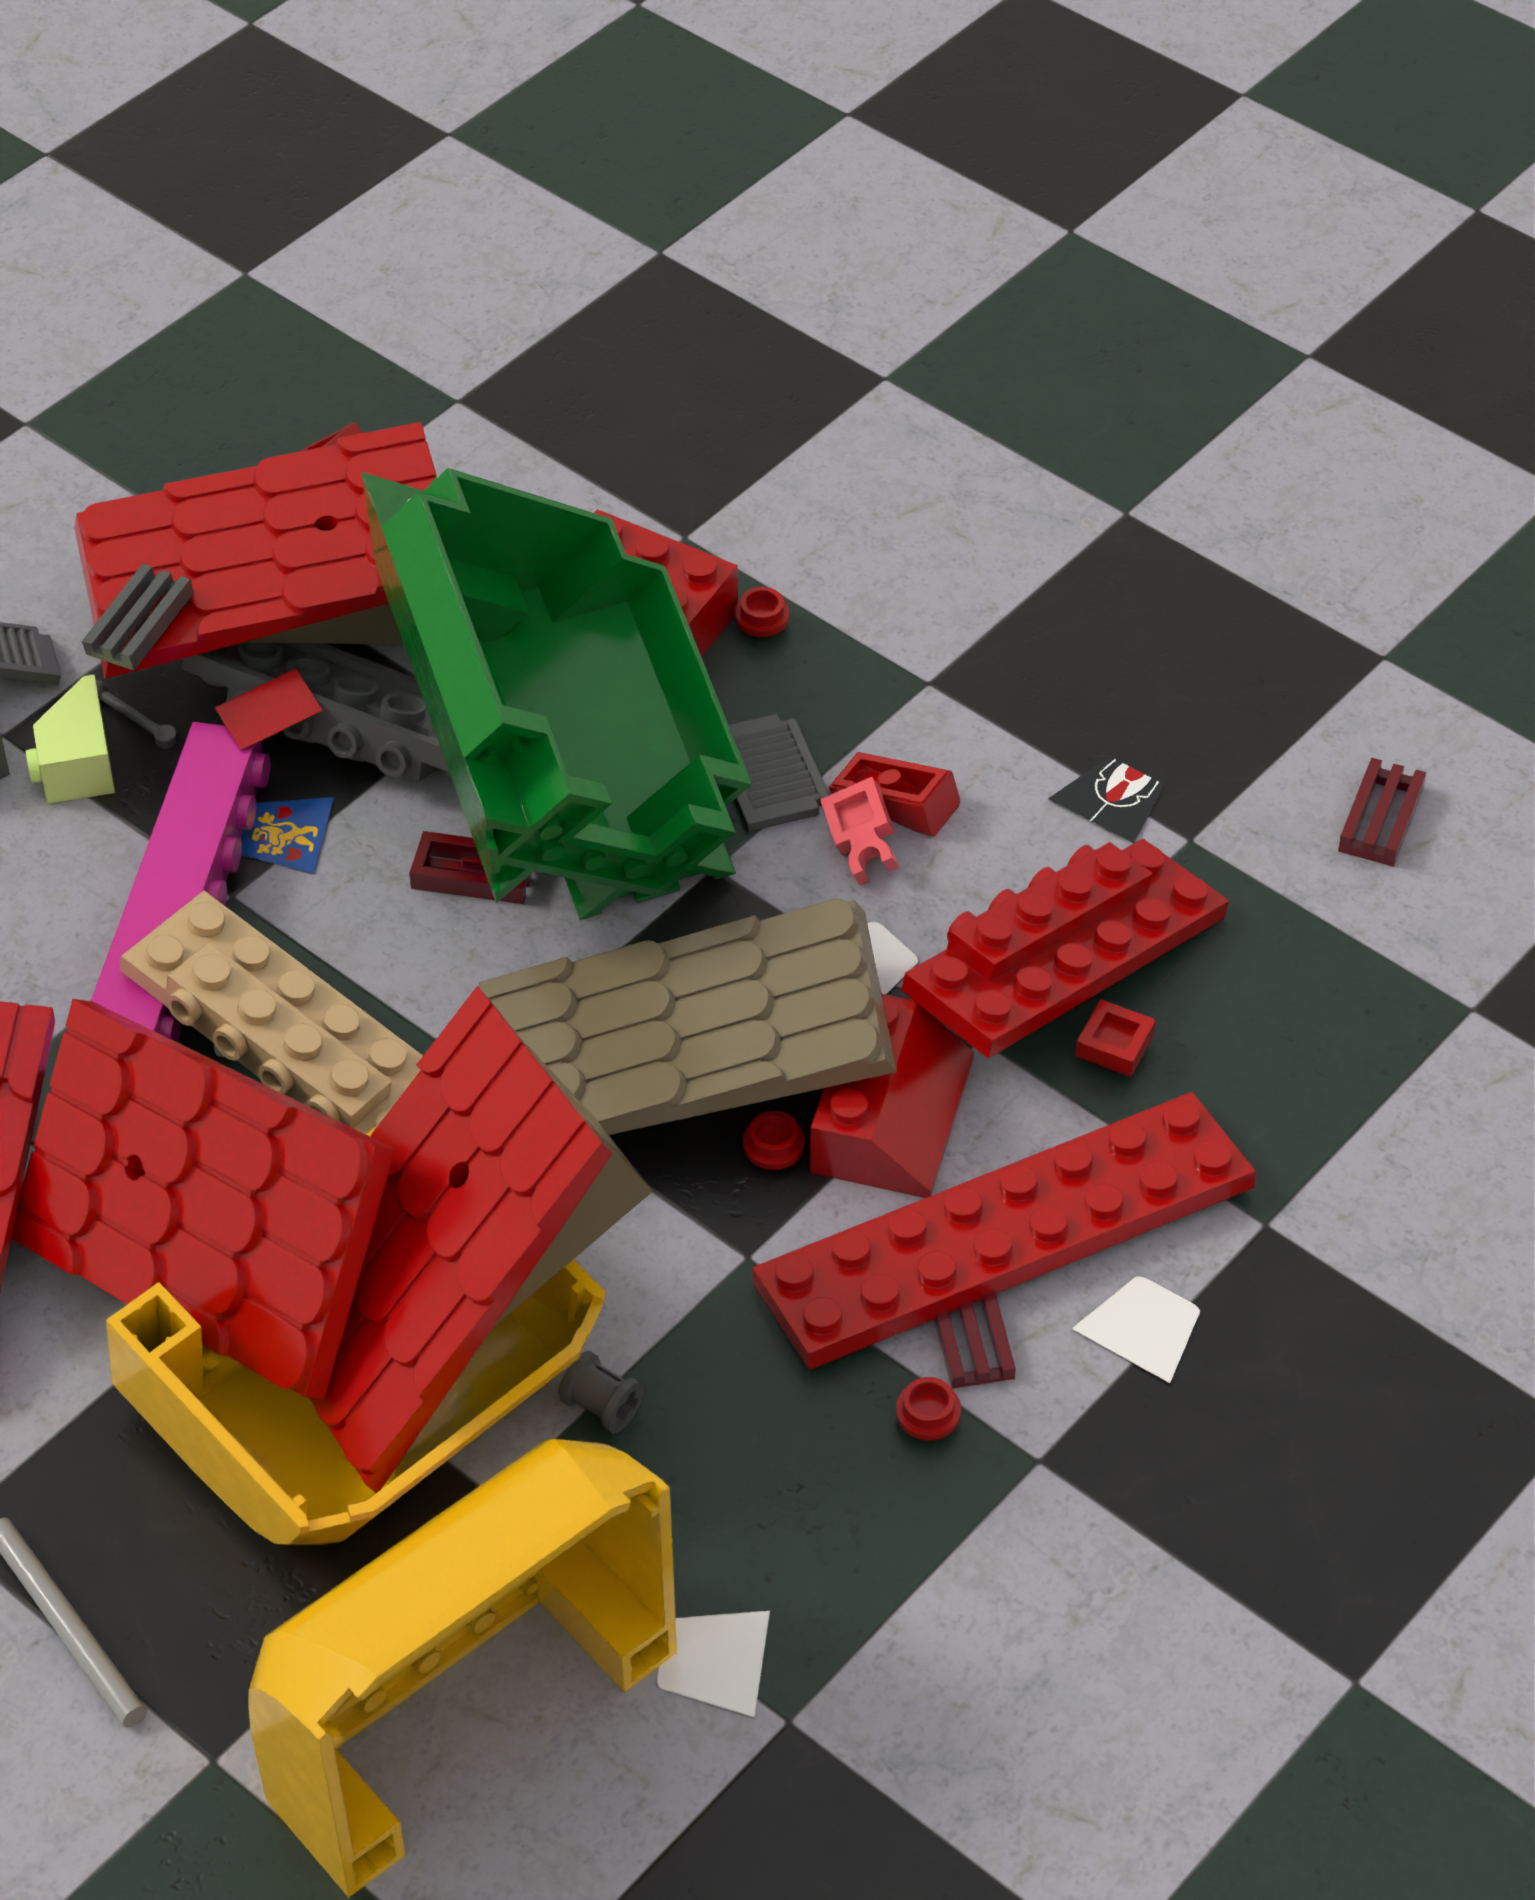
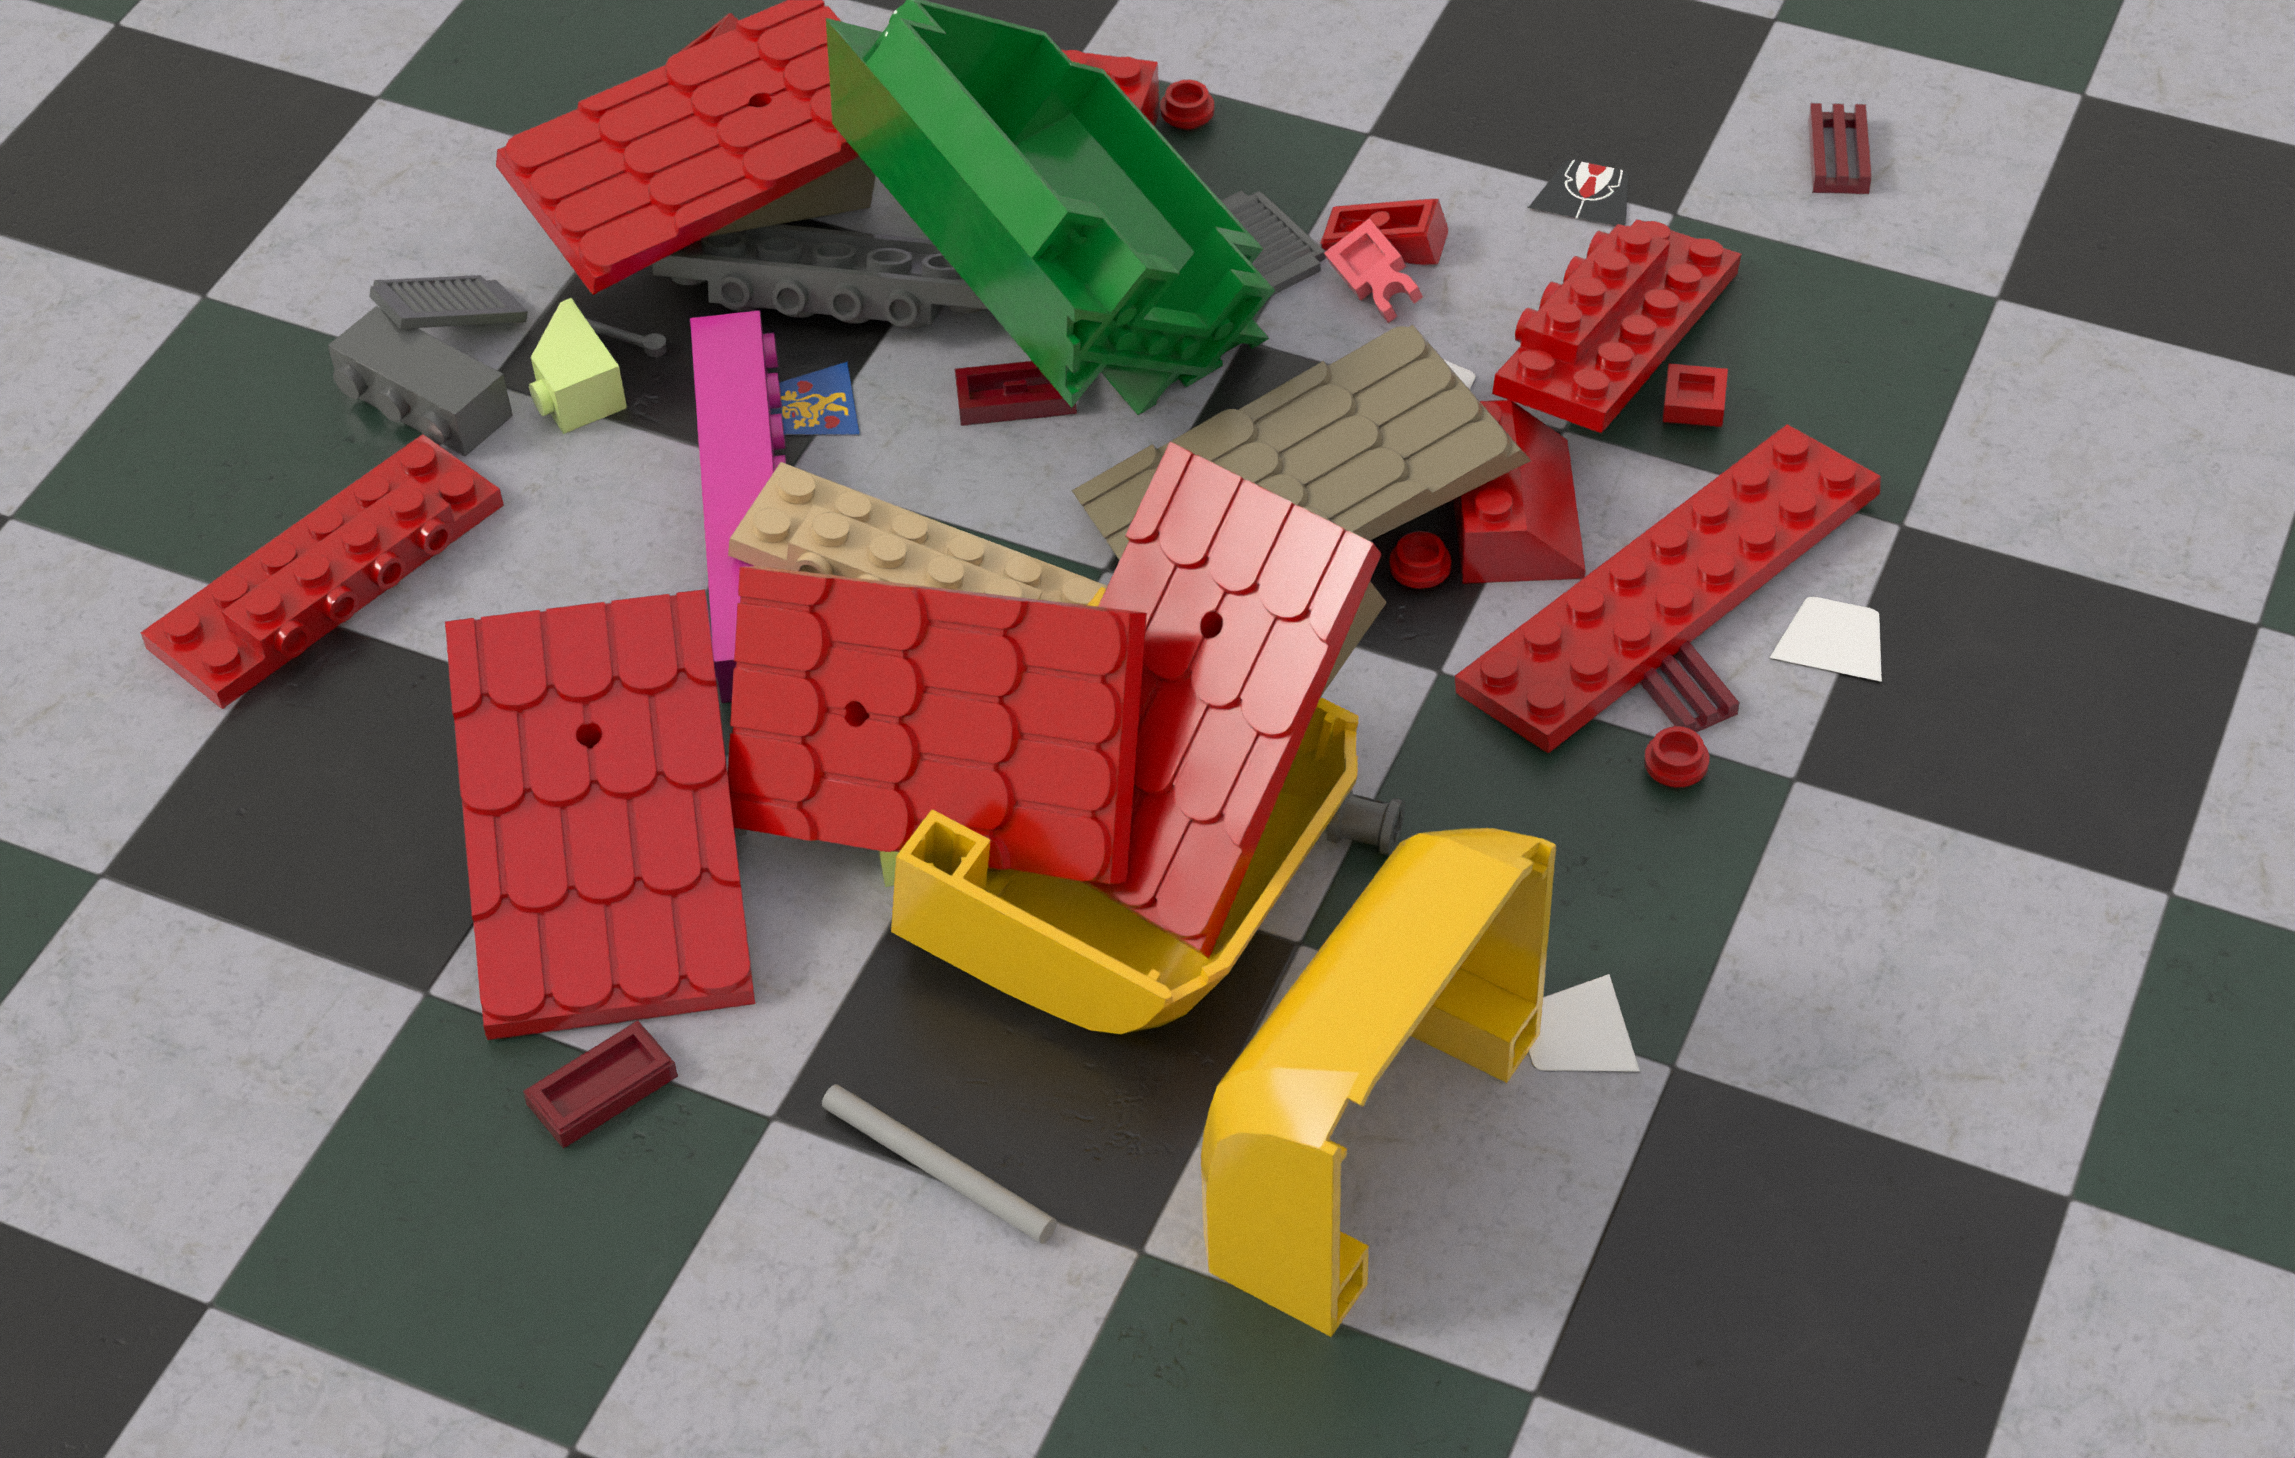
camera: 15 degrees left, 0 degrees up
(129, 615) = (587, 231): dark grey tile -> none
(268, 709) = (763, 288): red sticker -> none

